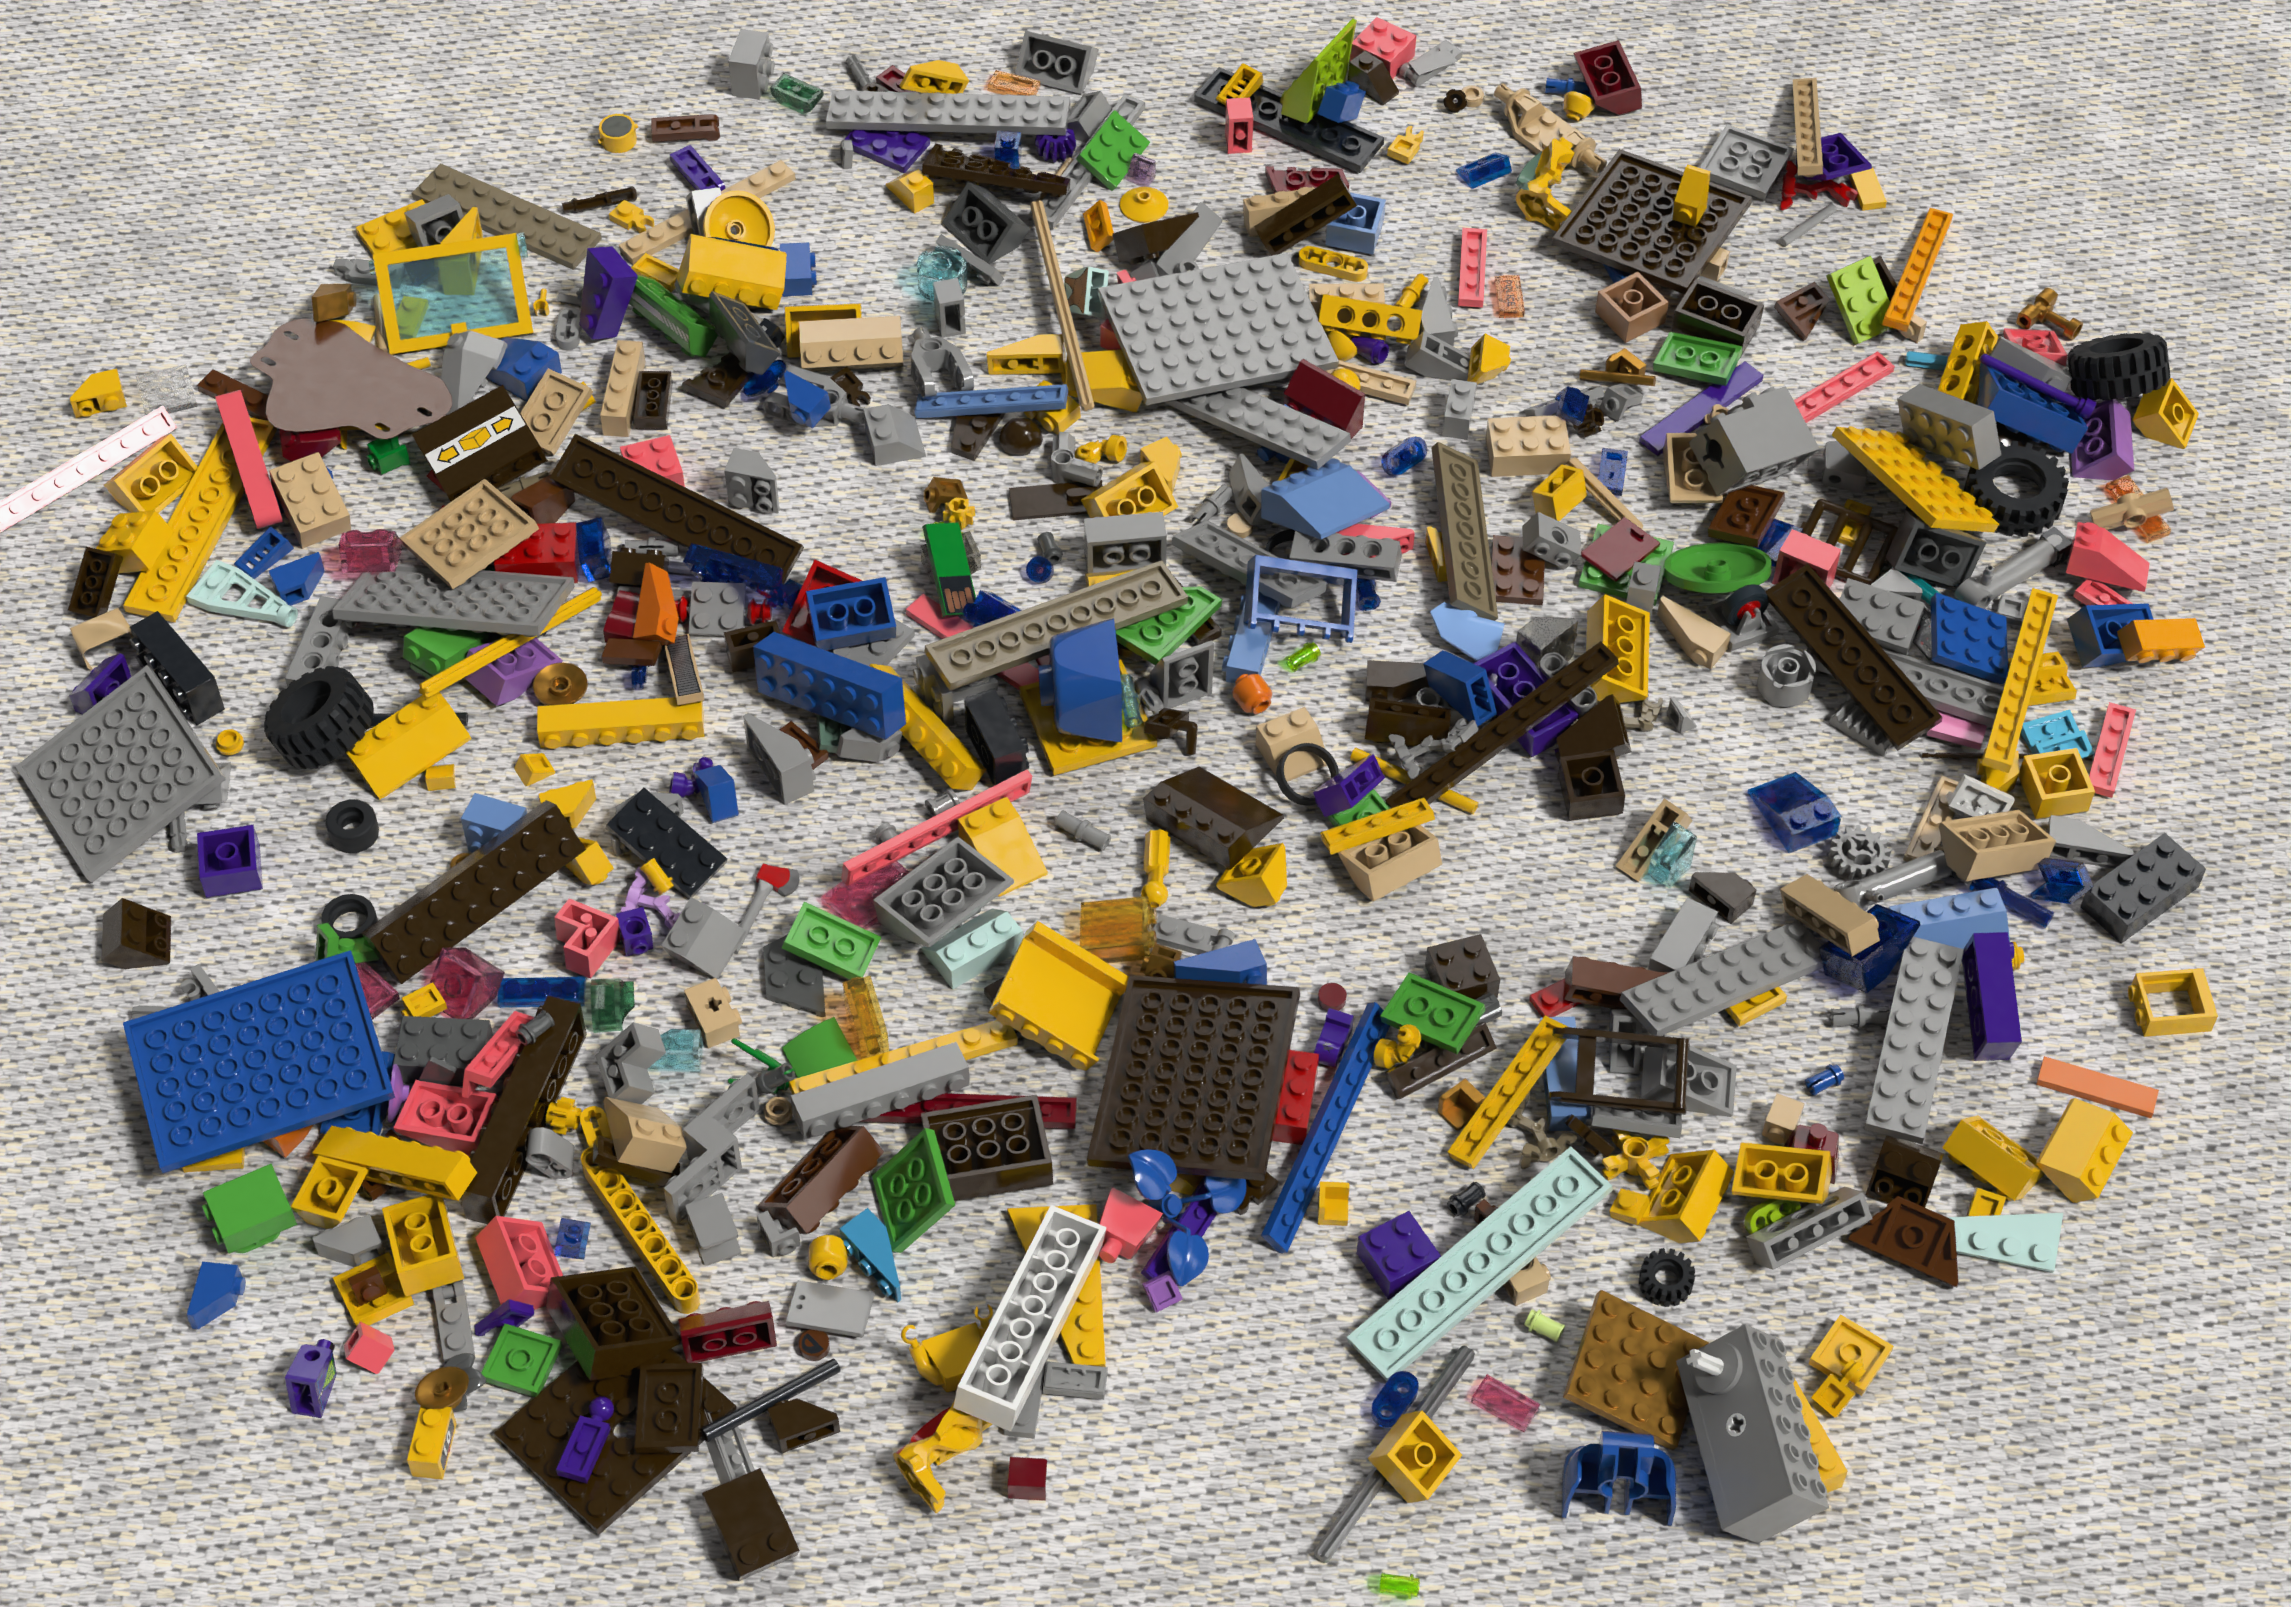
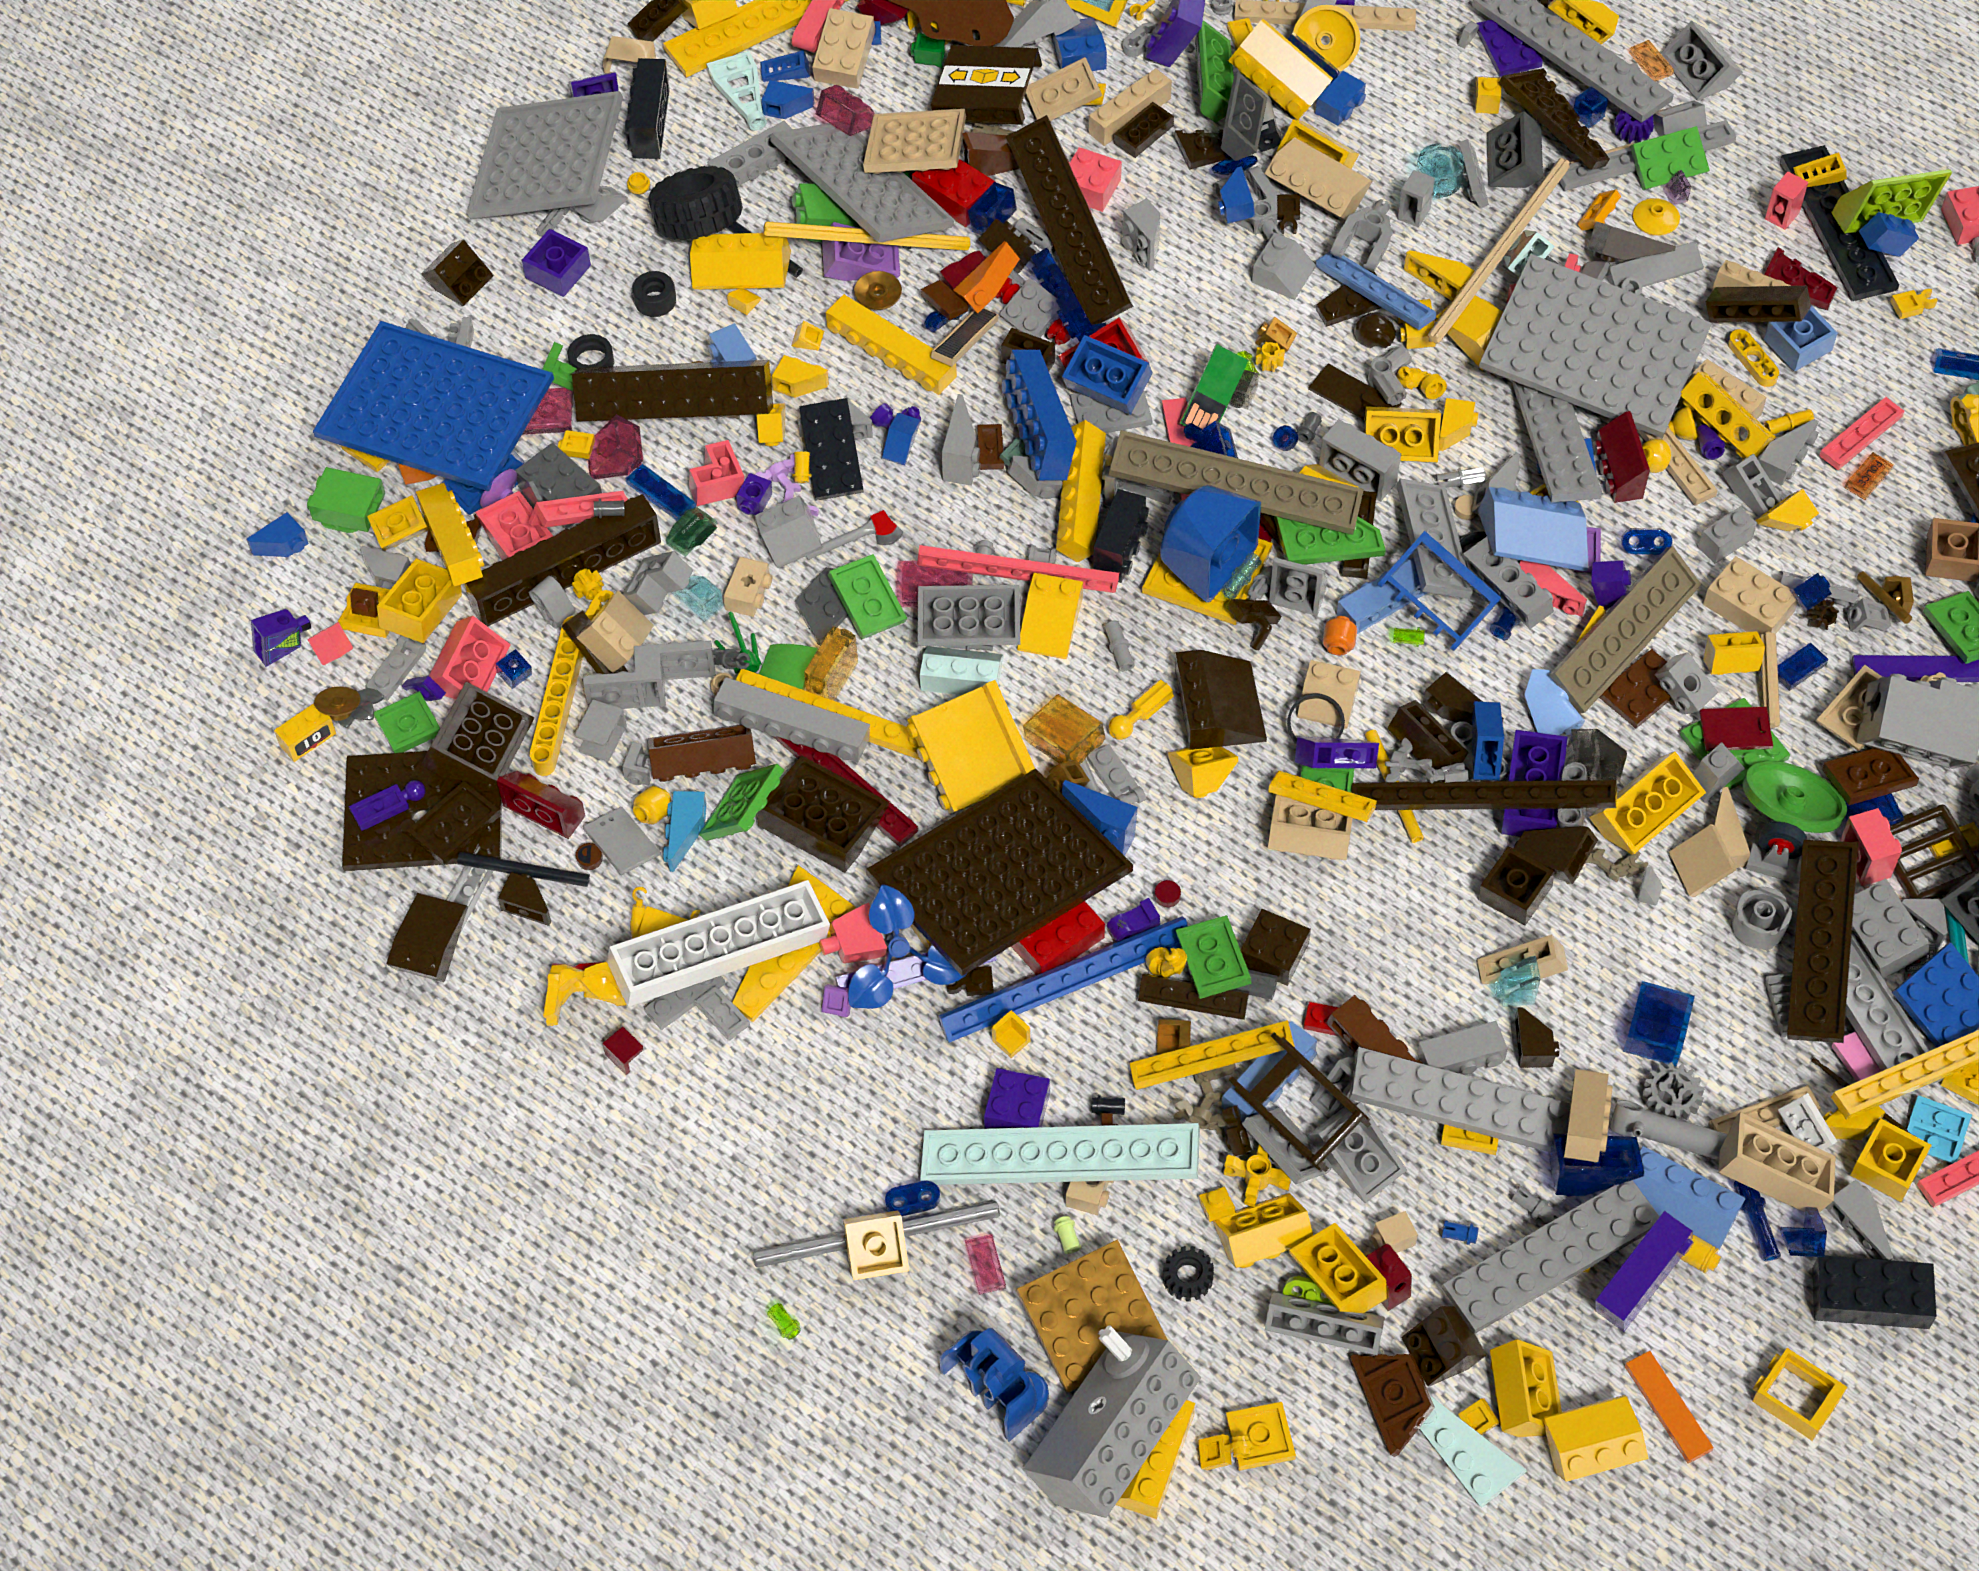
camera: 45 degrees right, 5 degrees up
(1372, 77) = (1941, 231): dark brown slope -> none
(1420, 503) = (1609, 582): none -> dark purple slope
(1701, 665) = (1702, 860): none -> tan tile

